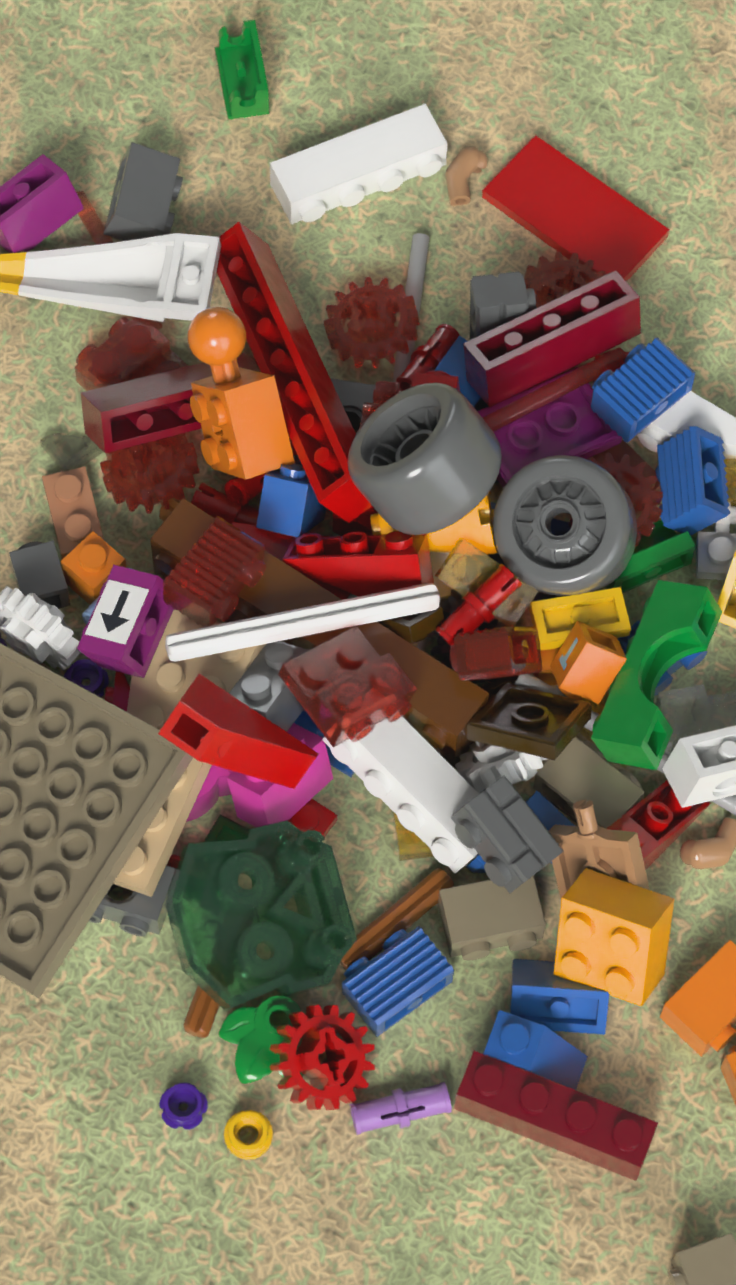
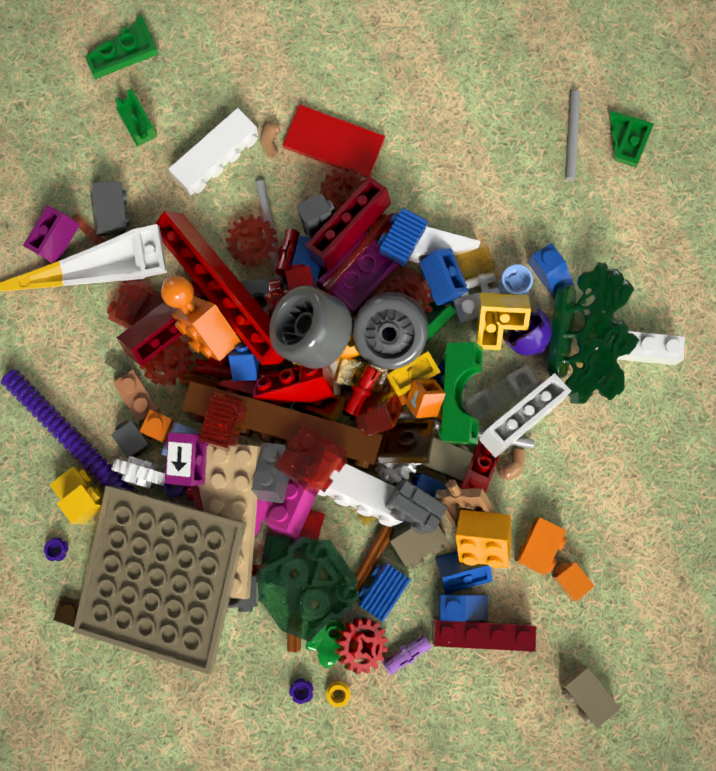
camera: 20 degrees left, 15 degrees up
(235, 737) = (259, 509): red slope -> none
(301, 622) = (275, 433): white axle -> none

